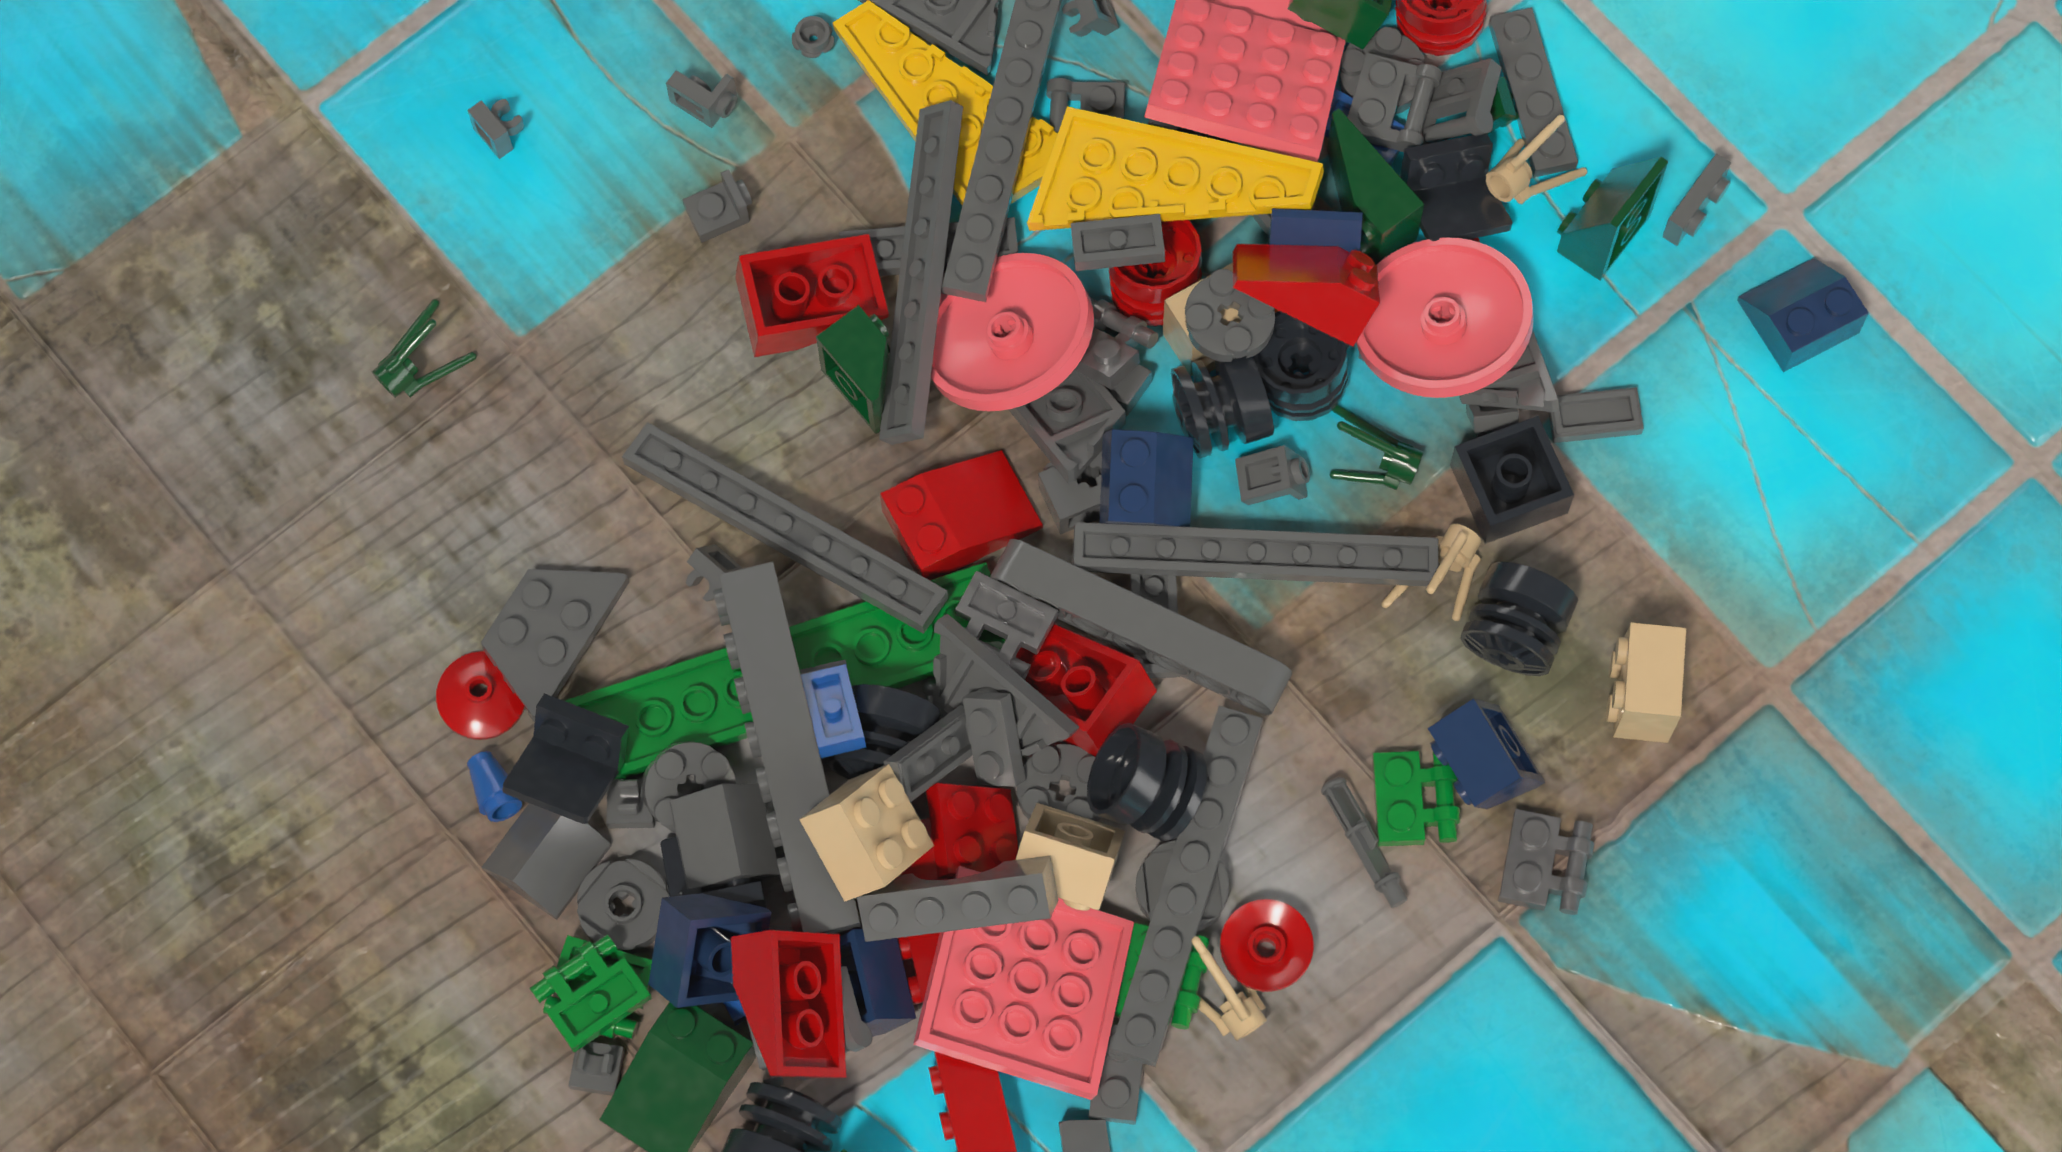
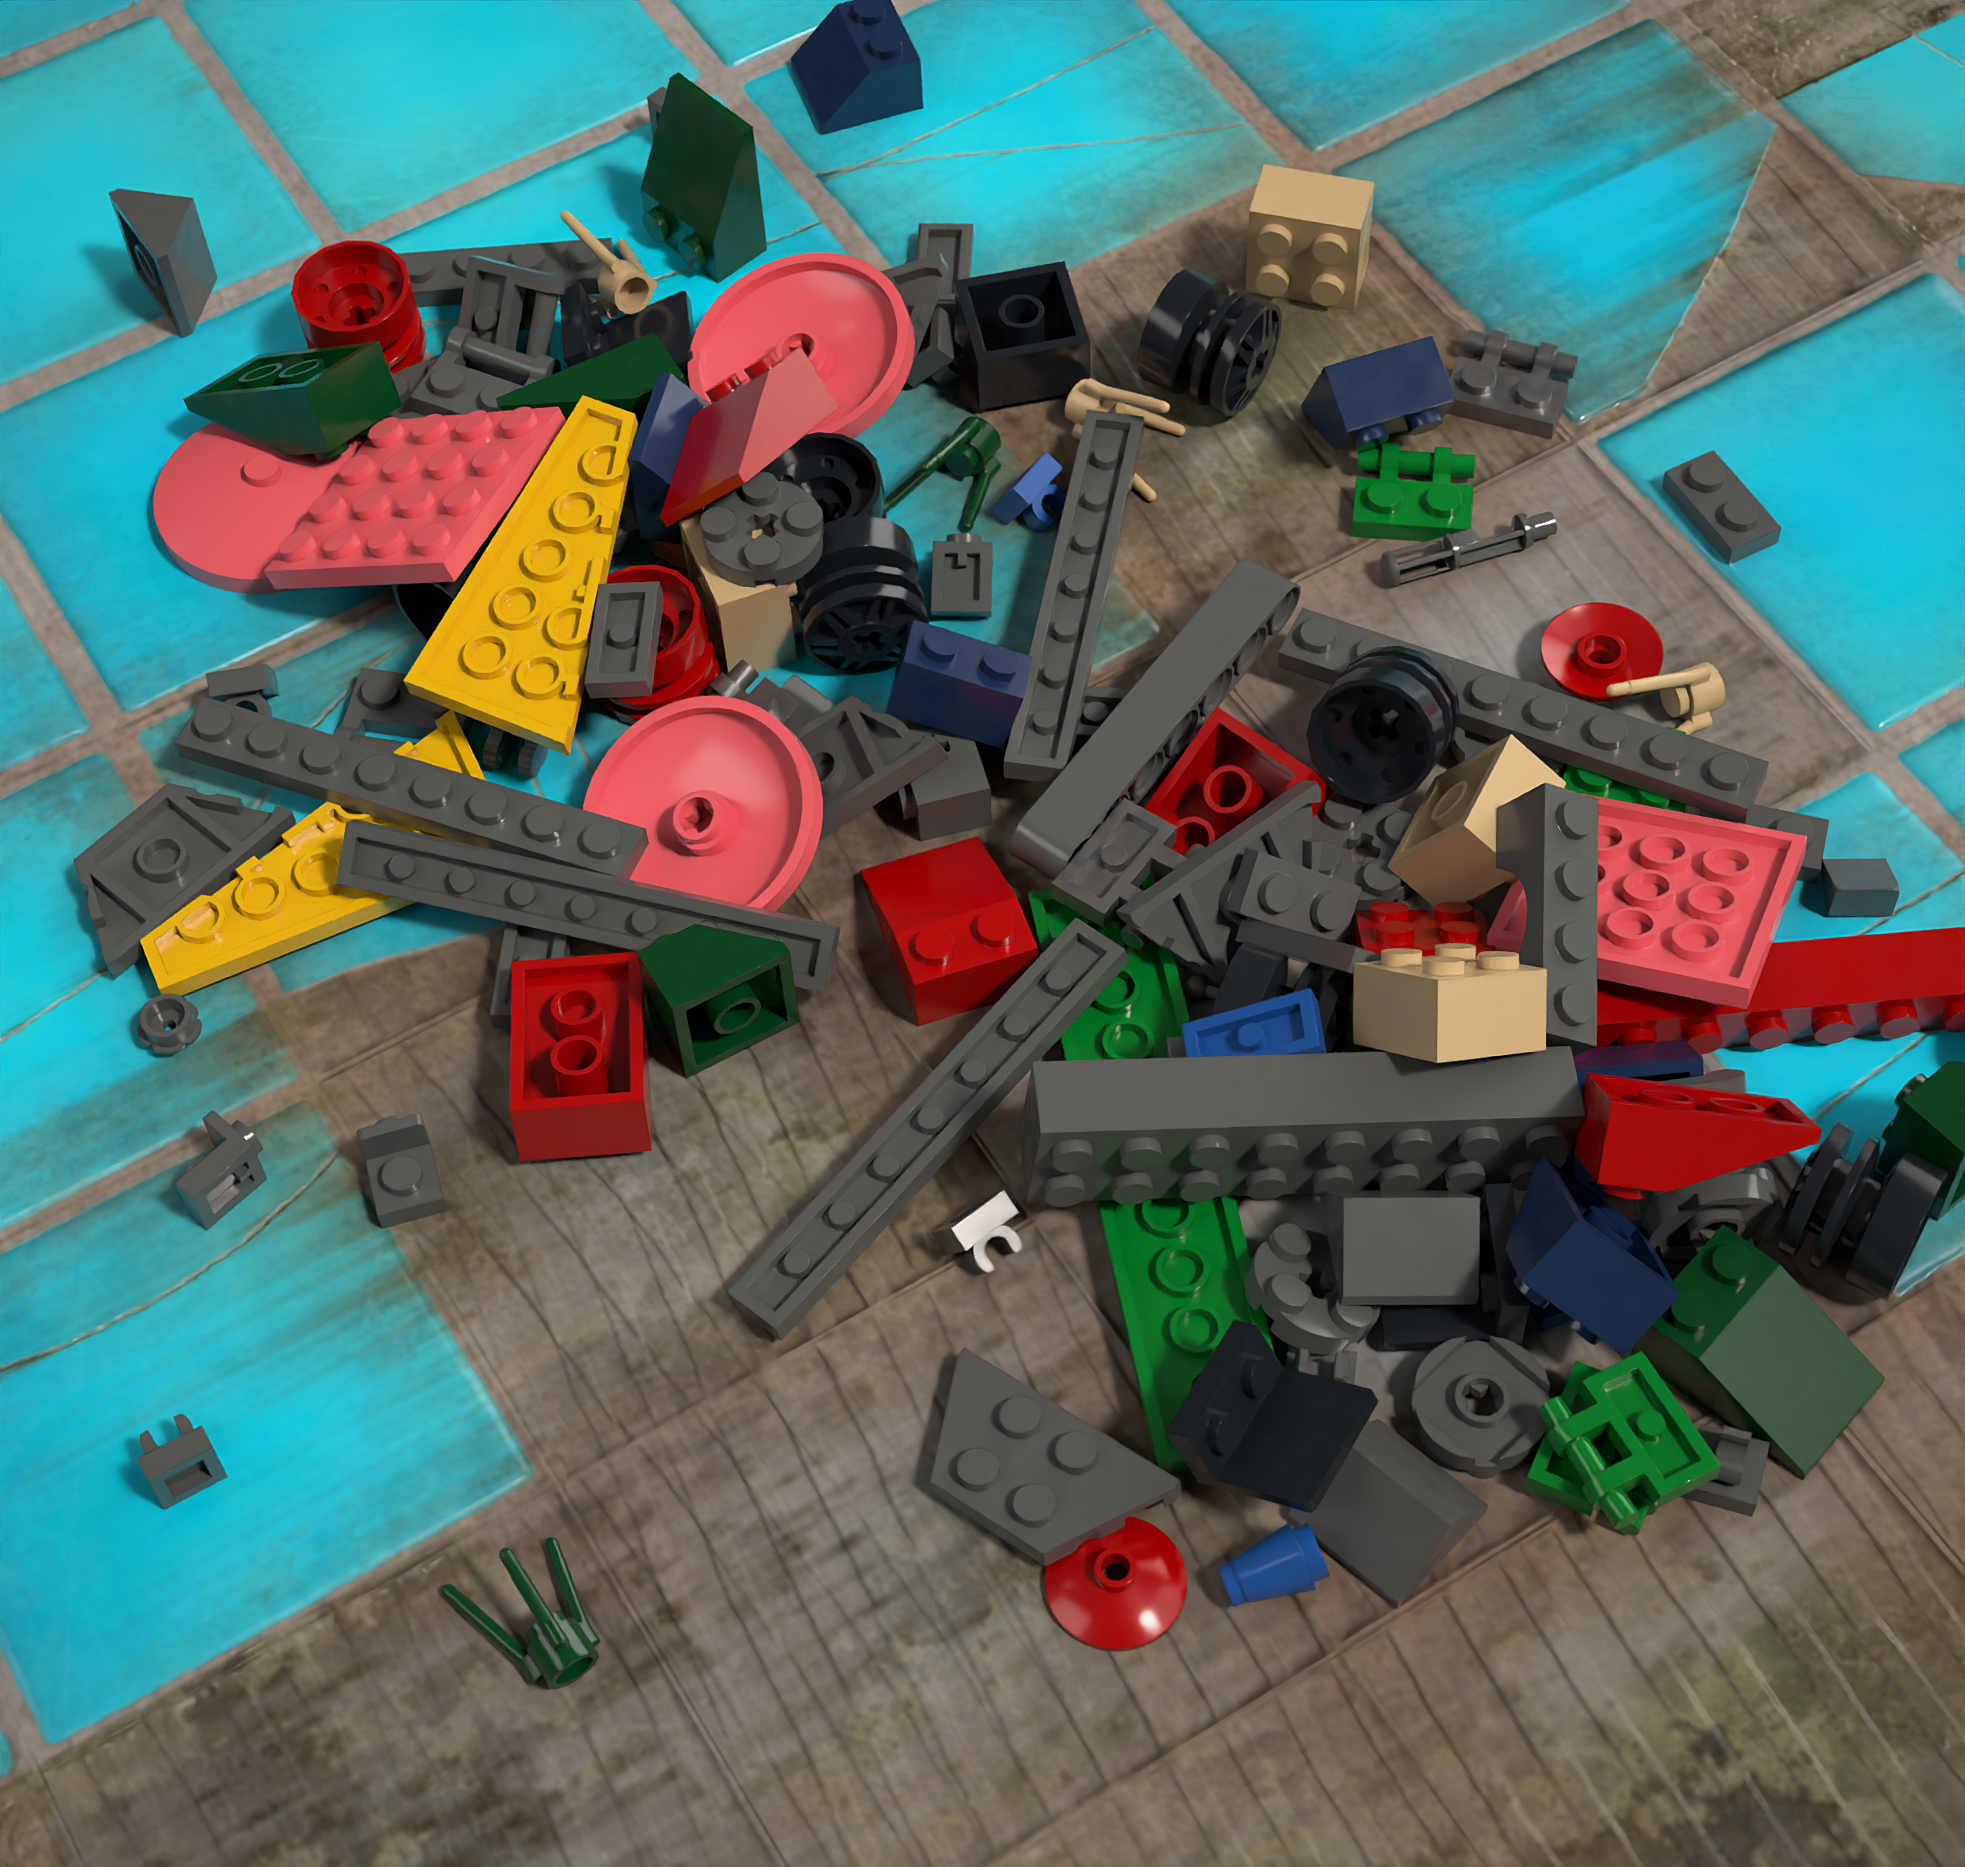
camera: 80 degrees left, 15 degrees down
(1362, 509) = (1028, 493): none -> blue tile
(1440, 1033) = (1721, 507): none -> dark grey plate

